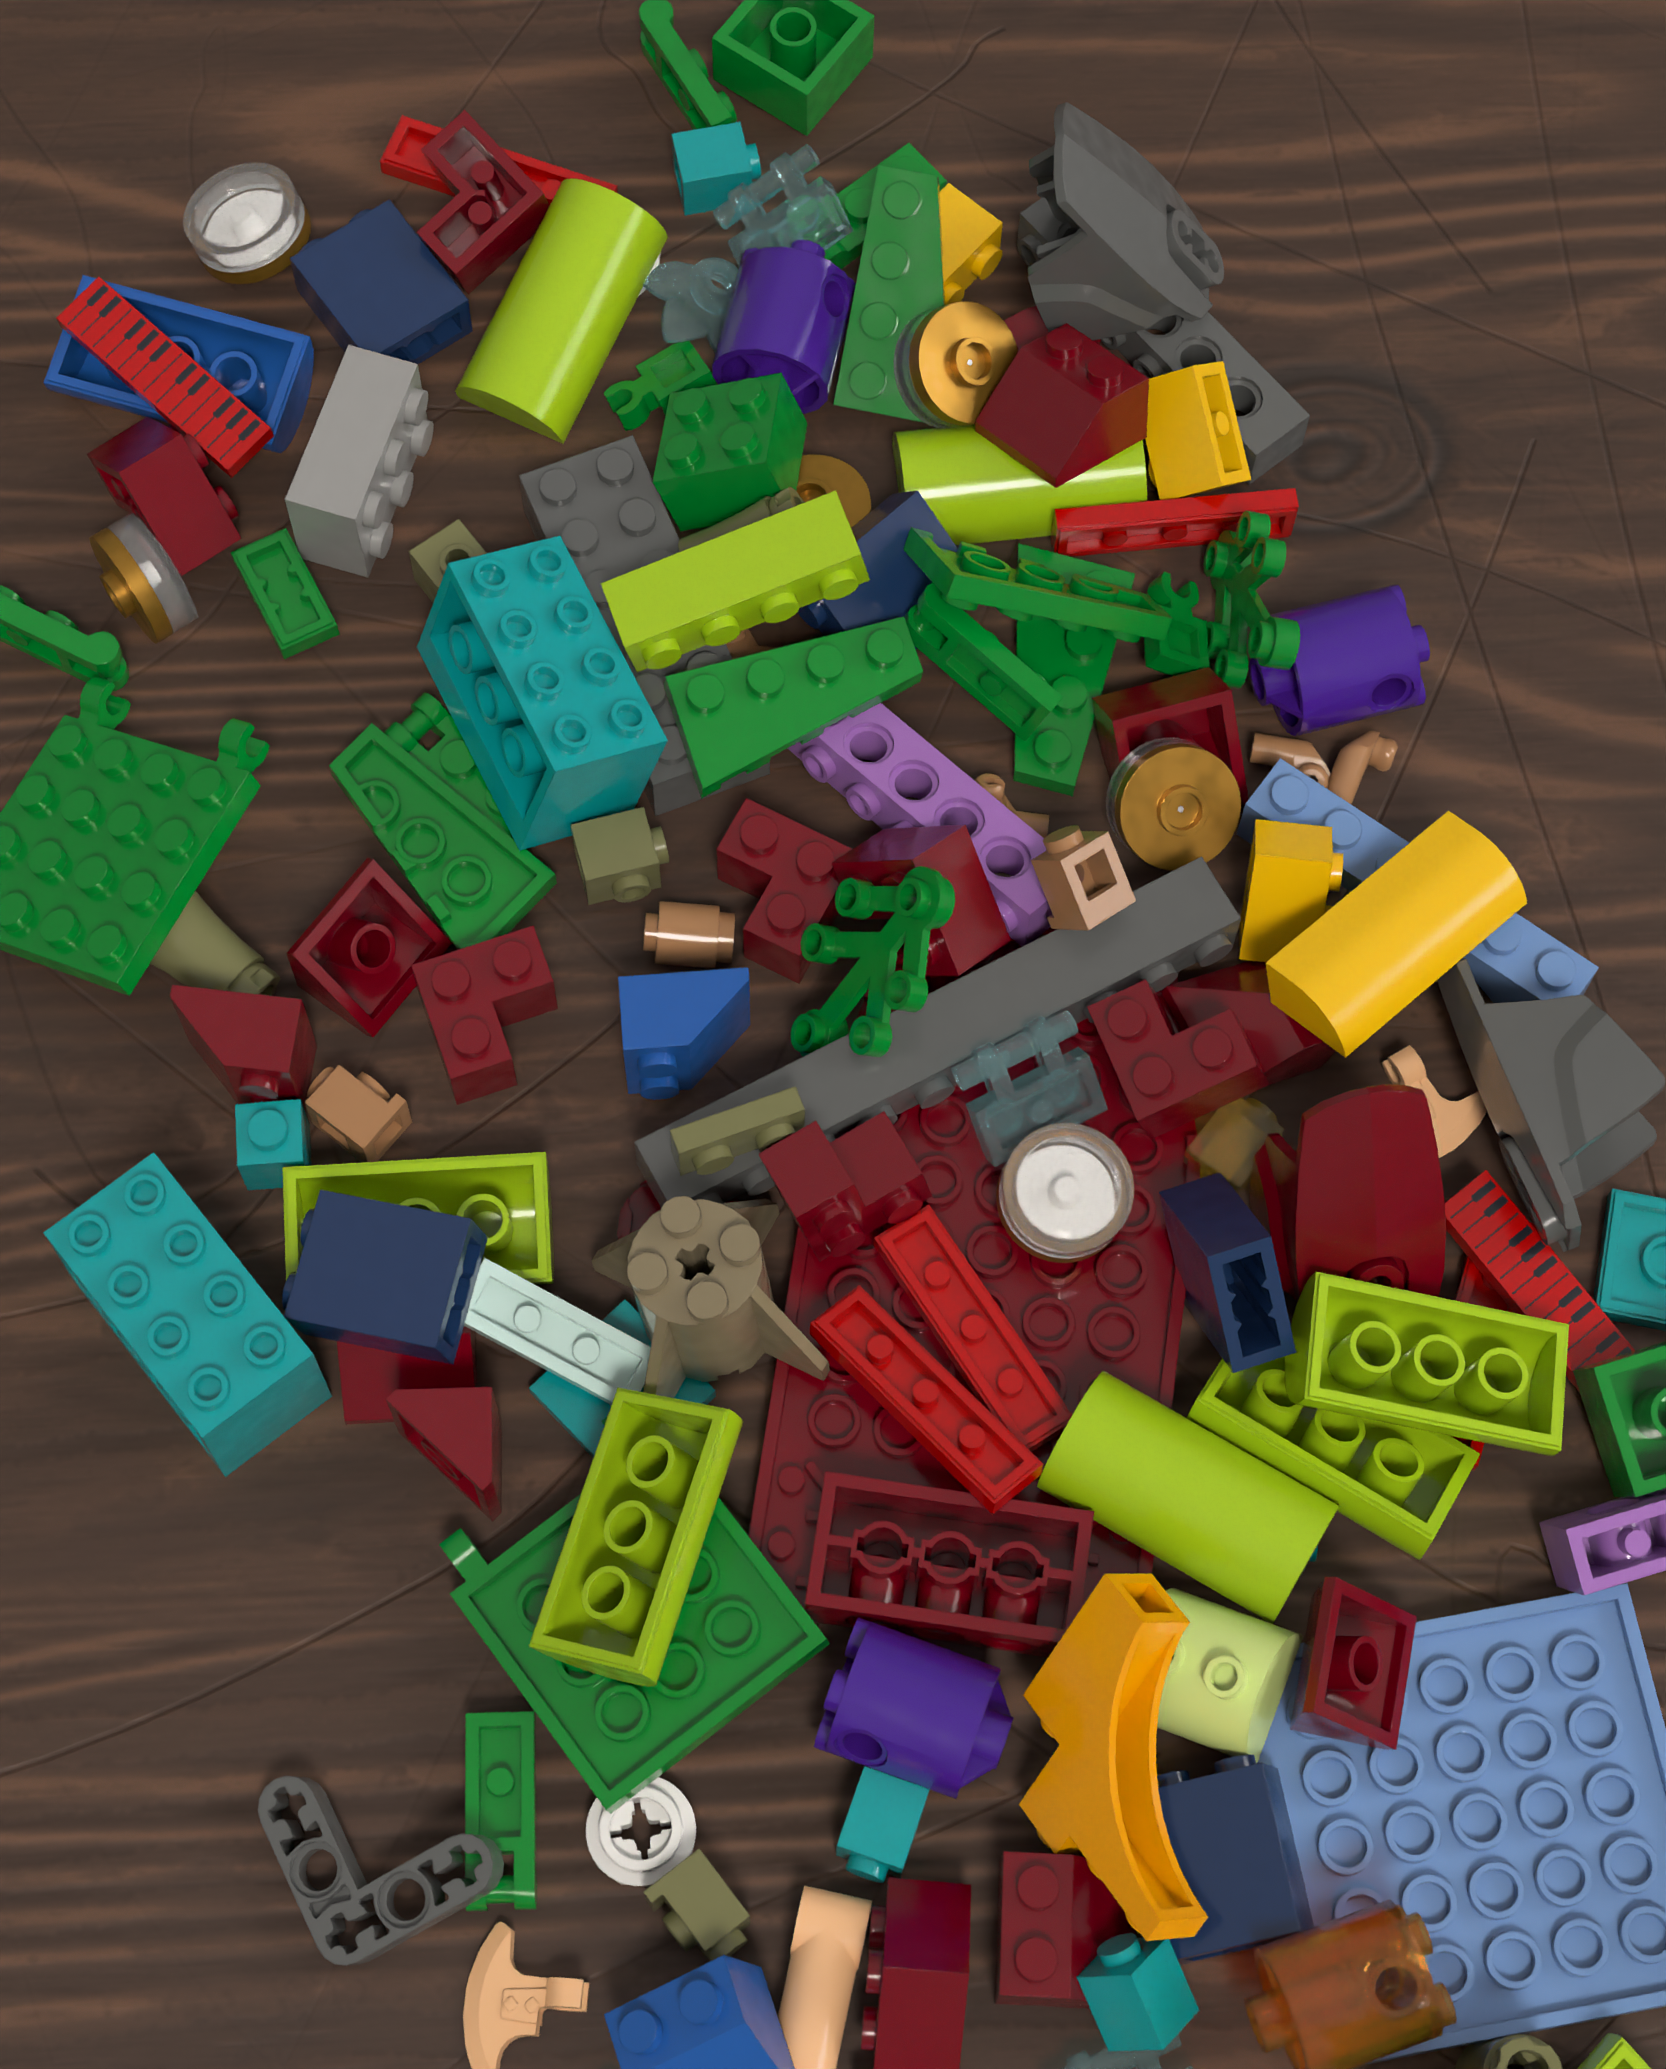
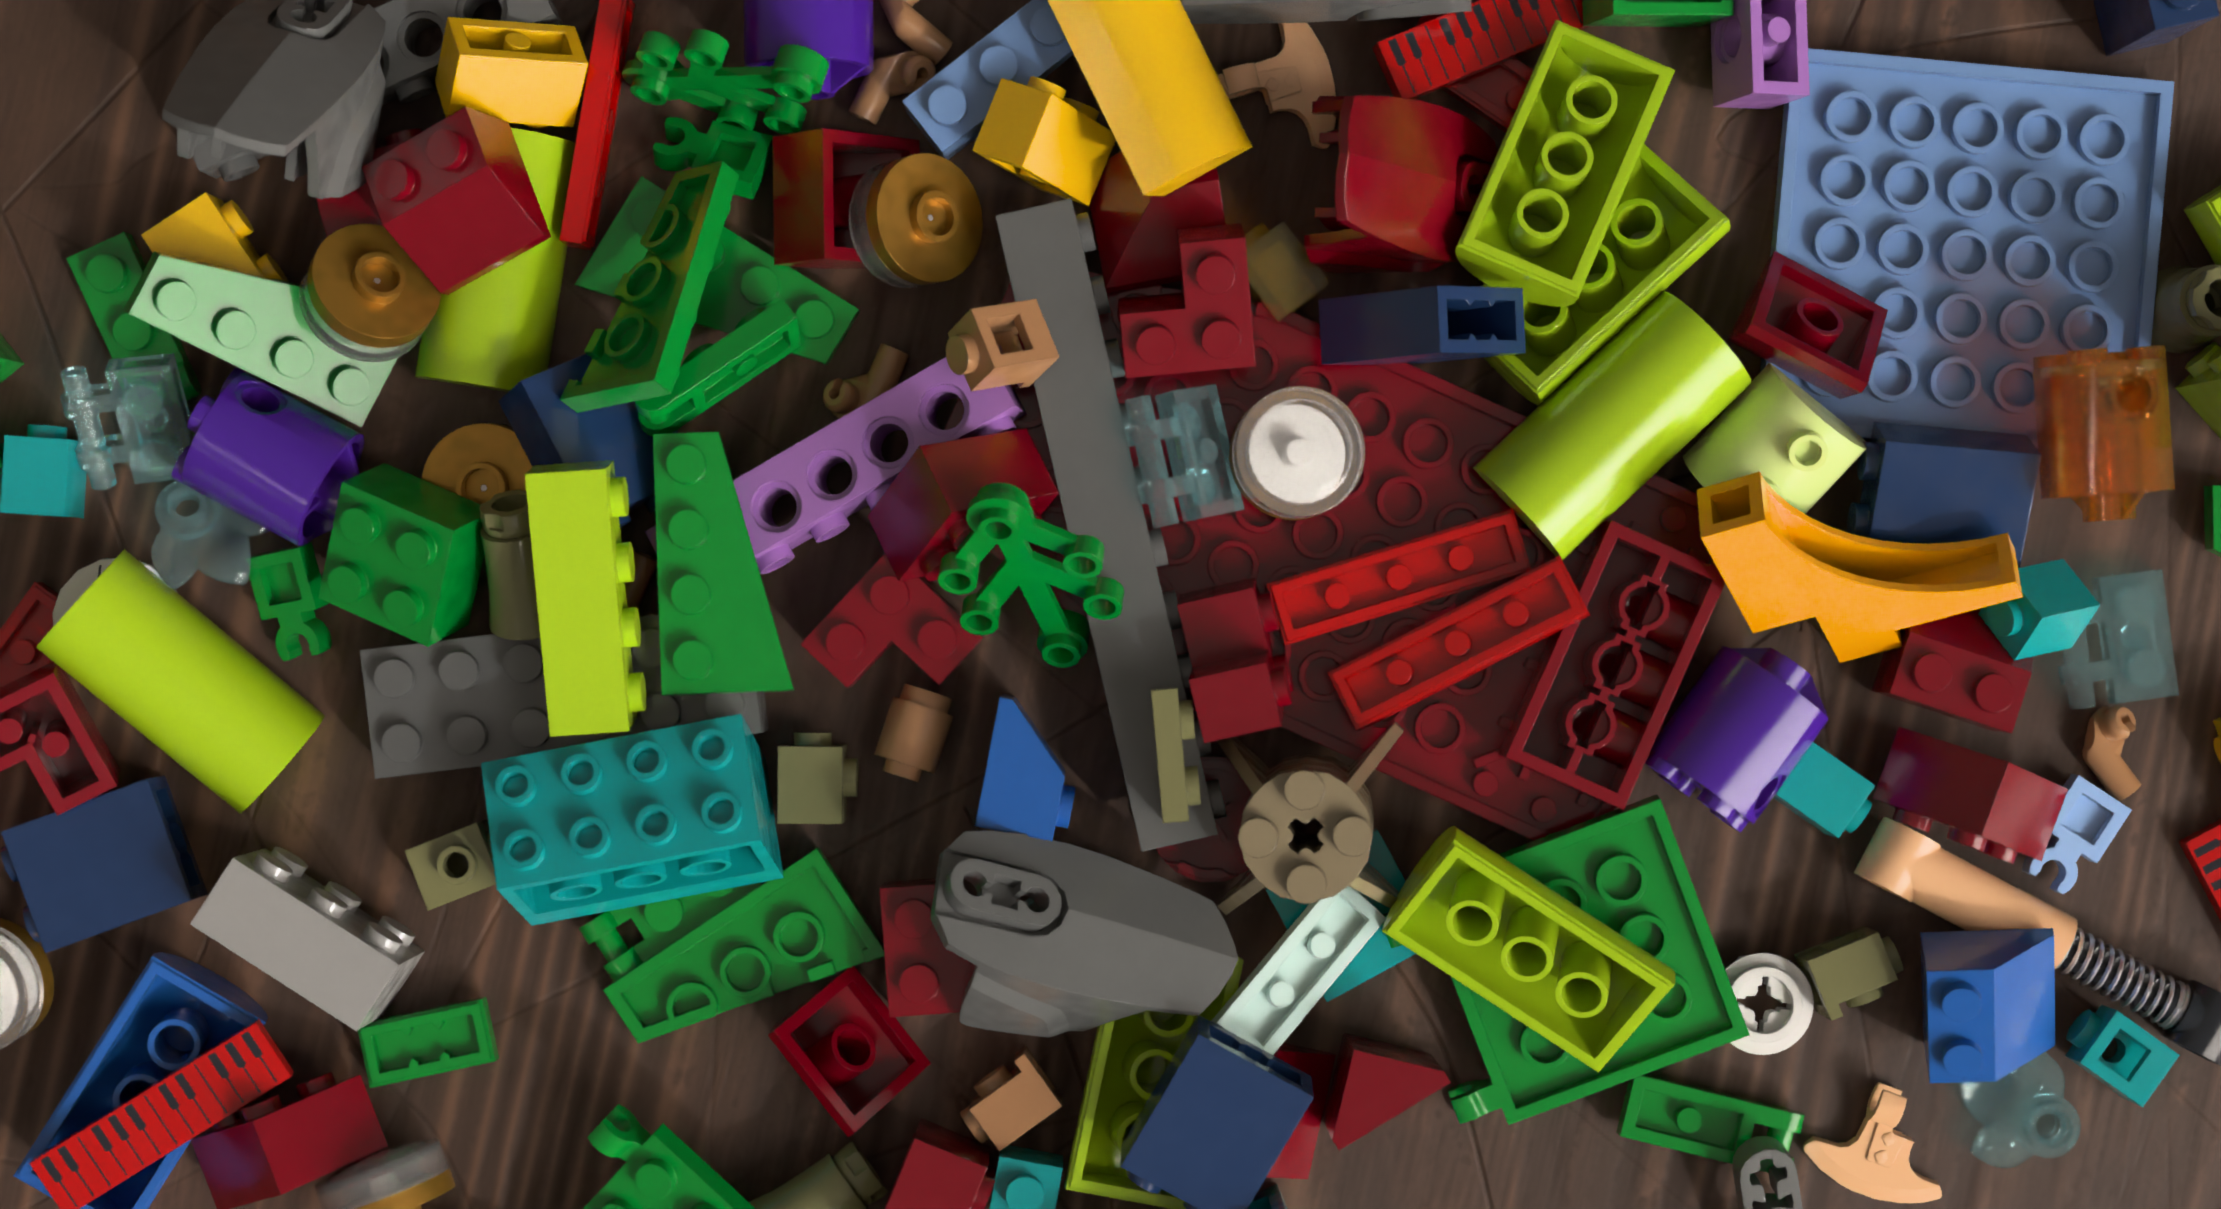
camera: 65 degrees left, 20 degrees up
(529, 1112) = (1085, 943): none -> dark grey piece

